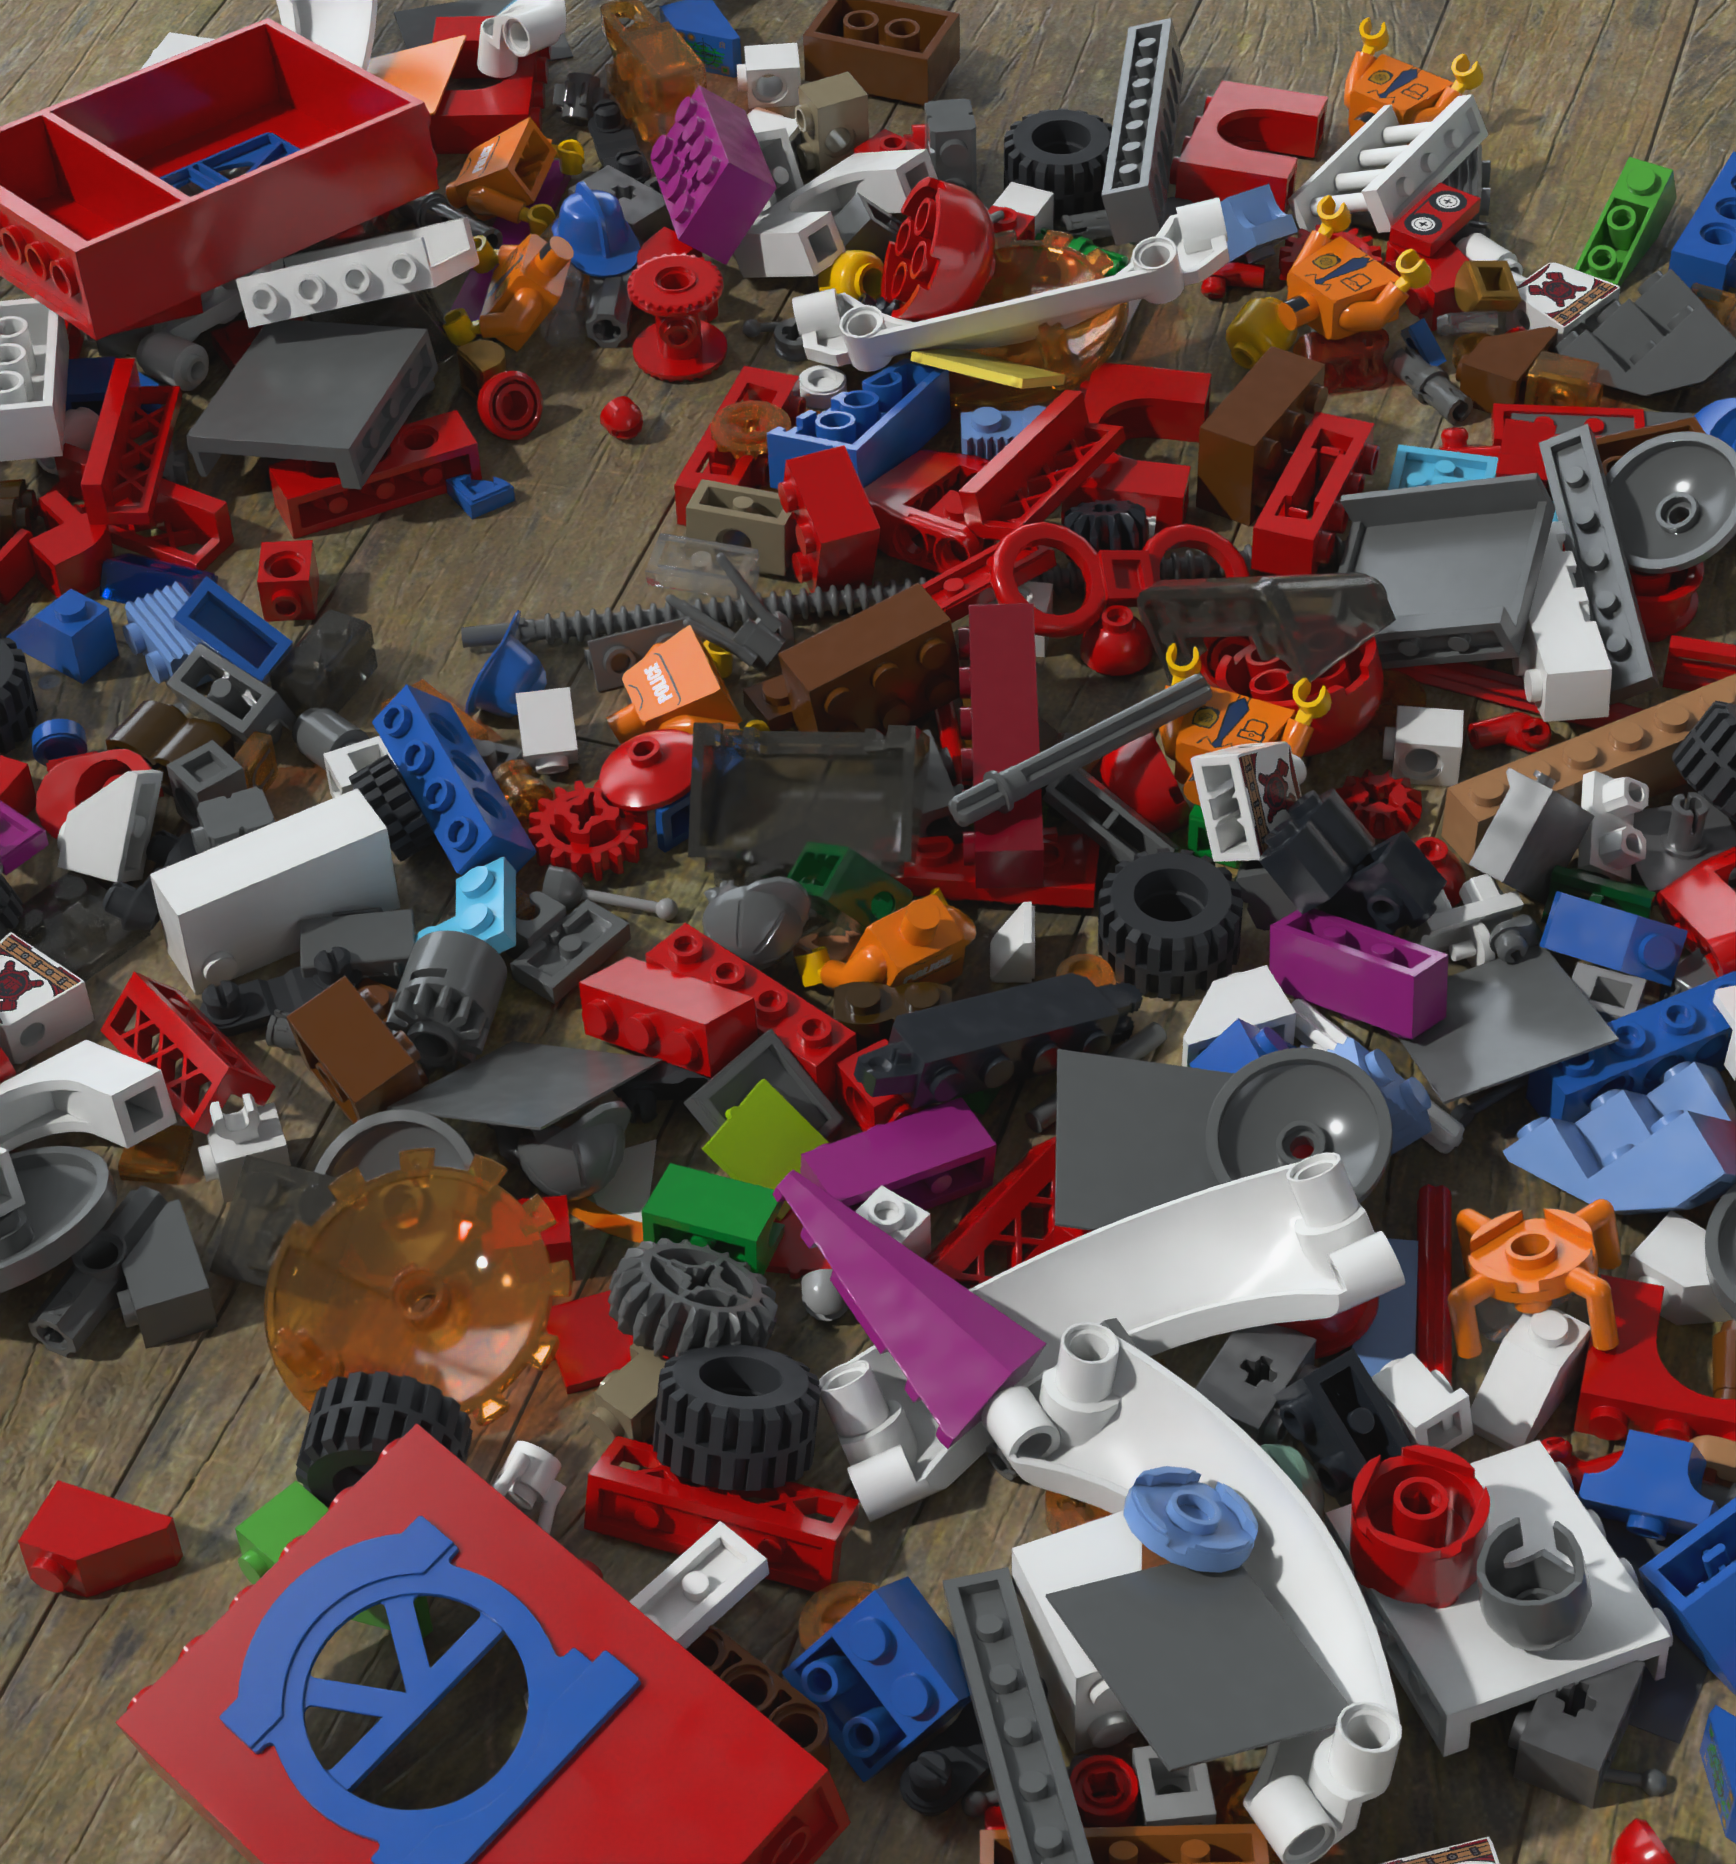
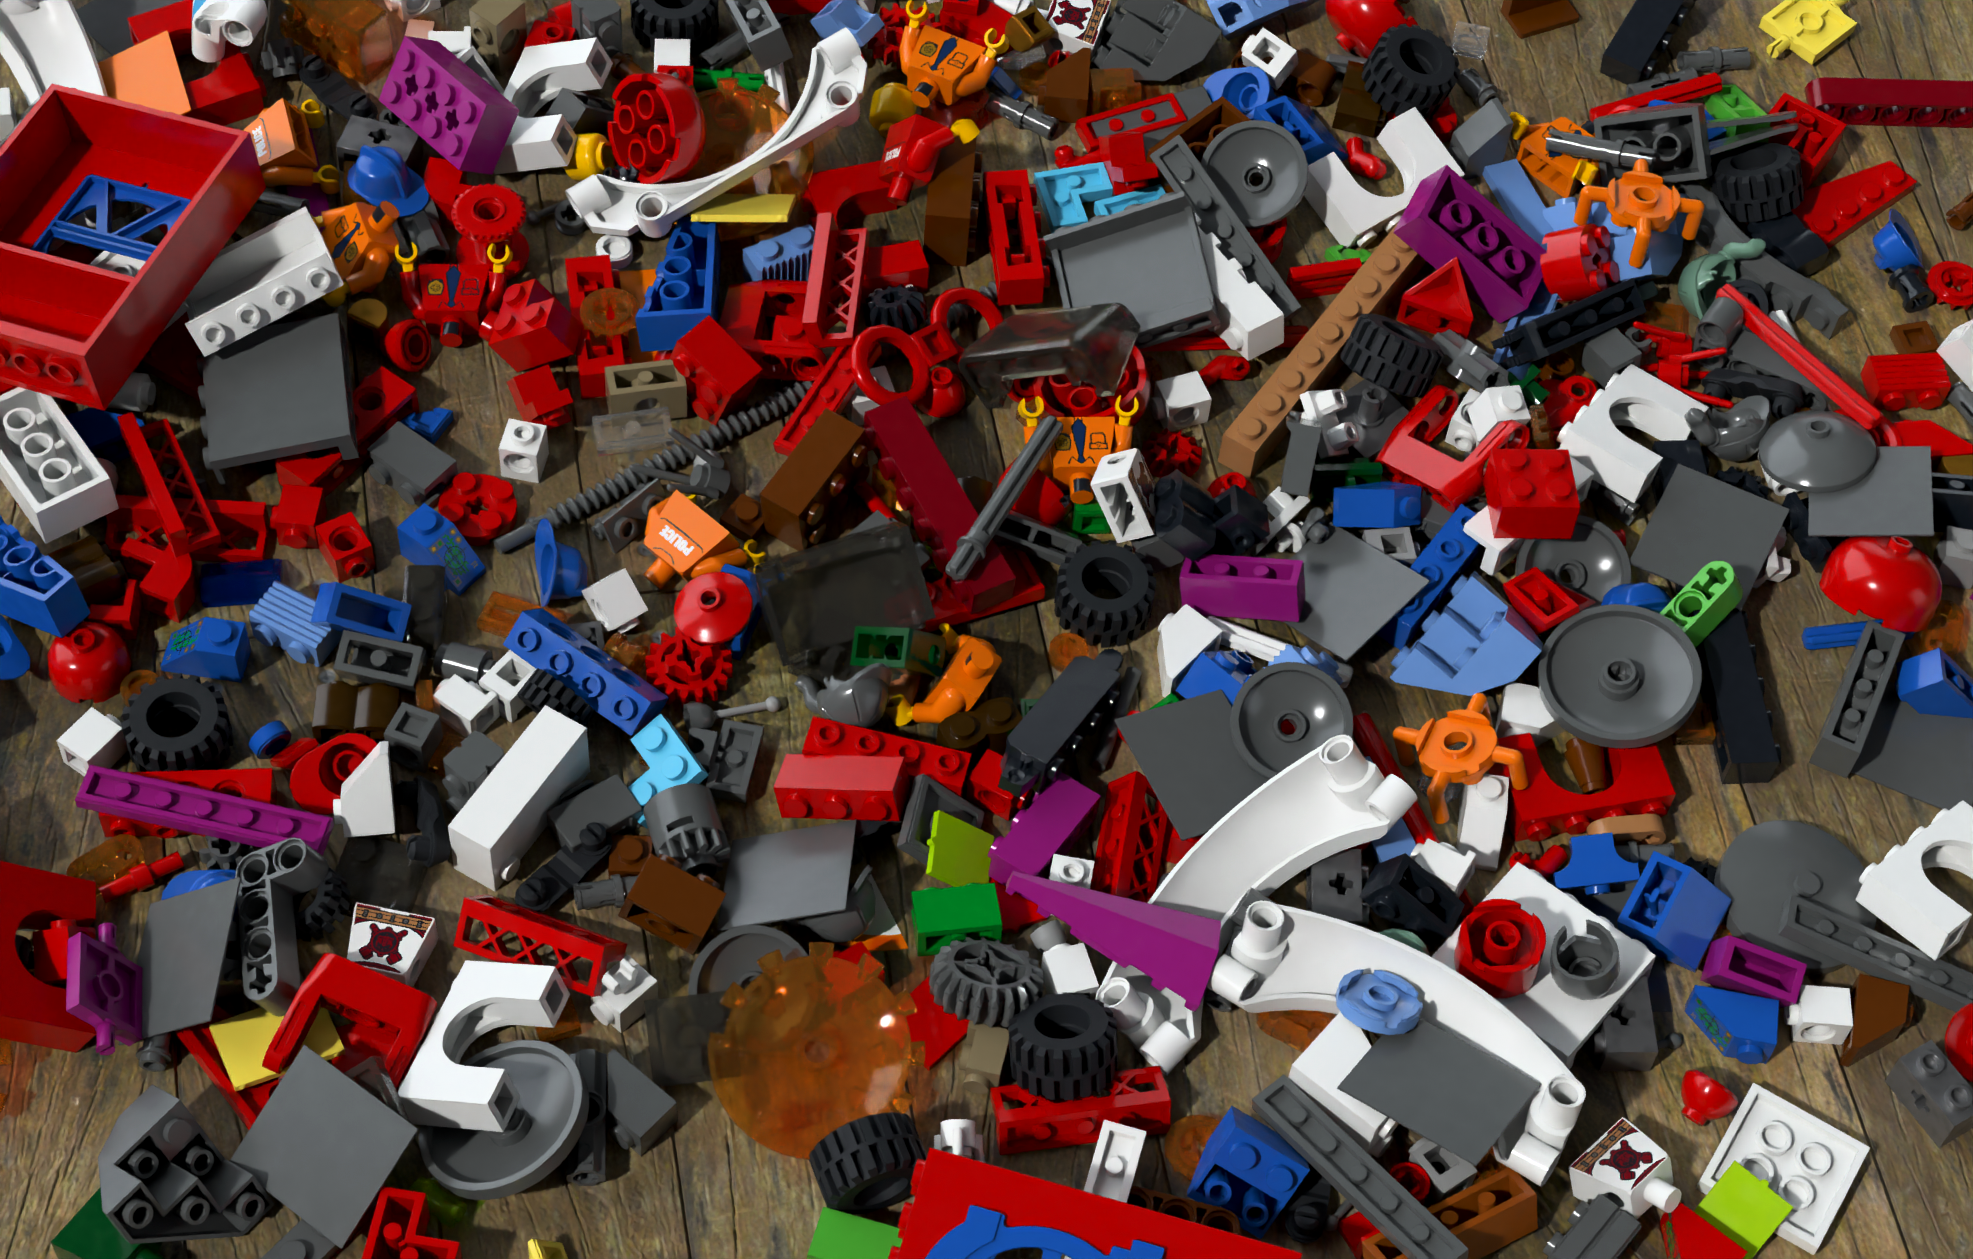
camera: 35 degrees left, 10 degrees up
(258, 521) = (298, 514): none -> red brick
(296, 778) = (465, 705): none -> white brick
(389, 603) = (435, 540): none -> blue slope
(423, 525) = (411, 465): none -> dark grey brick
(450, 590) = (483, 490): none -> red plate
(559, 546) = (523, 450): none -> white brick
(591, 368) = (453, 296): none -> red torso
(616, 499) = (539, 398): none -> red brick
(655, 422) = (533, 327): none -> red brick
(817, 1334) = (1069, 971): none -> white brick
(1014, 948) = (1015, 645): white slope -> none
(1229, 356) = (913, 152): none -> red torso

